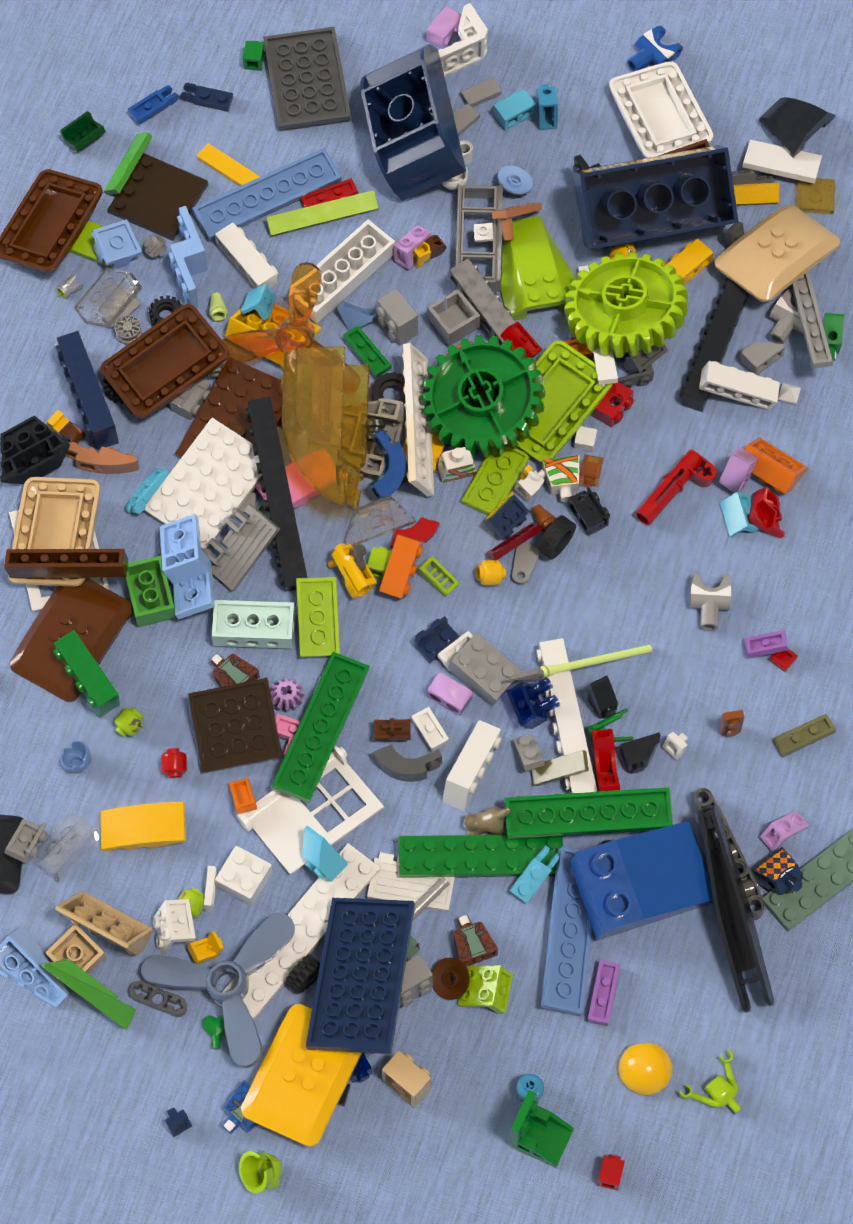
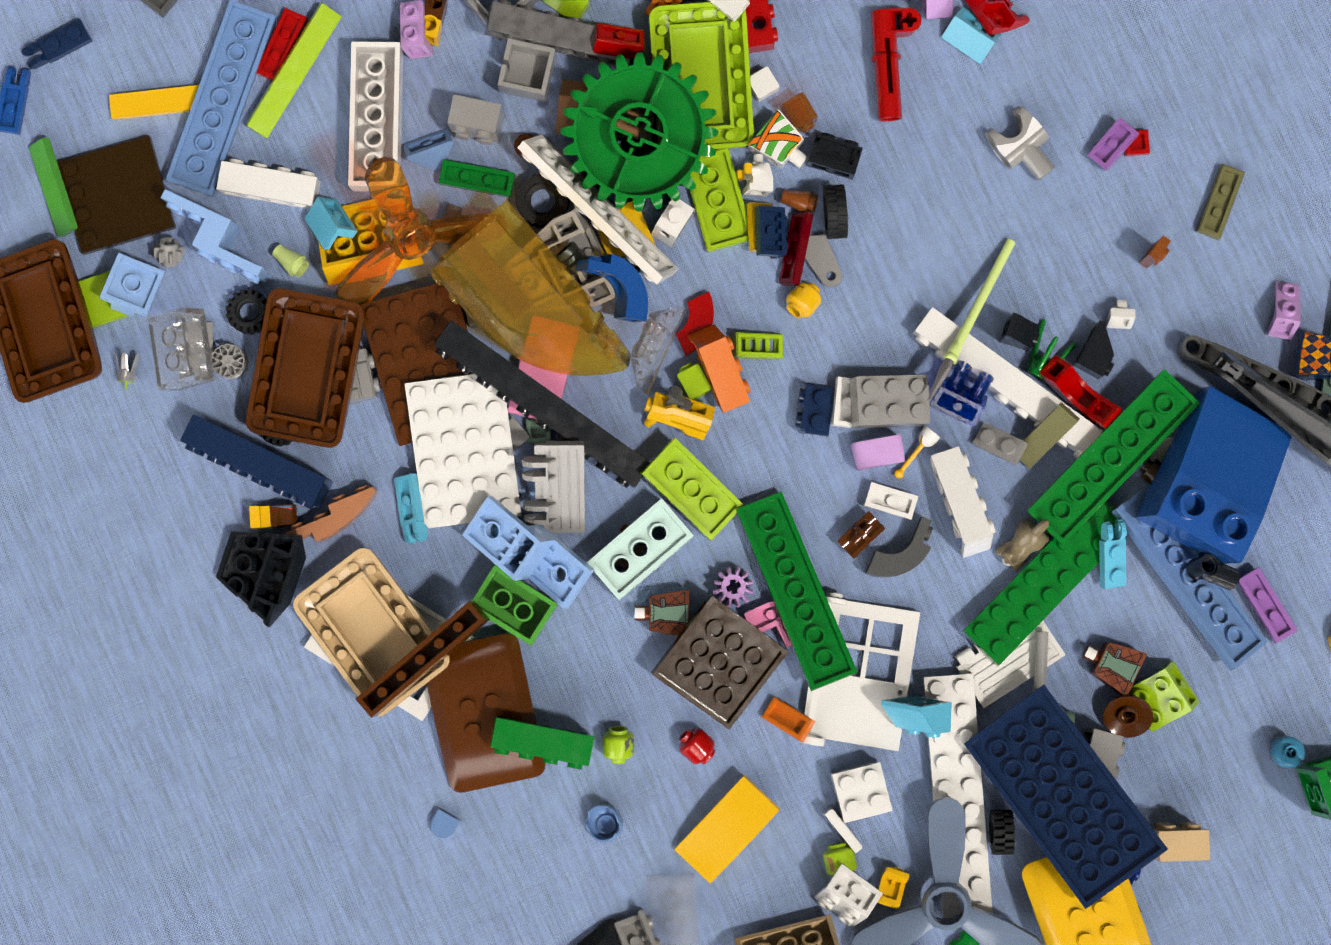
camera: 40 degrees left, 20 degrees up
(487, 713) = (927, 439): none -> hinge
(588, 939) = (1213, 571): none -> black piece

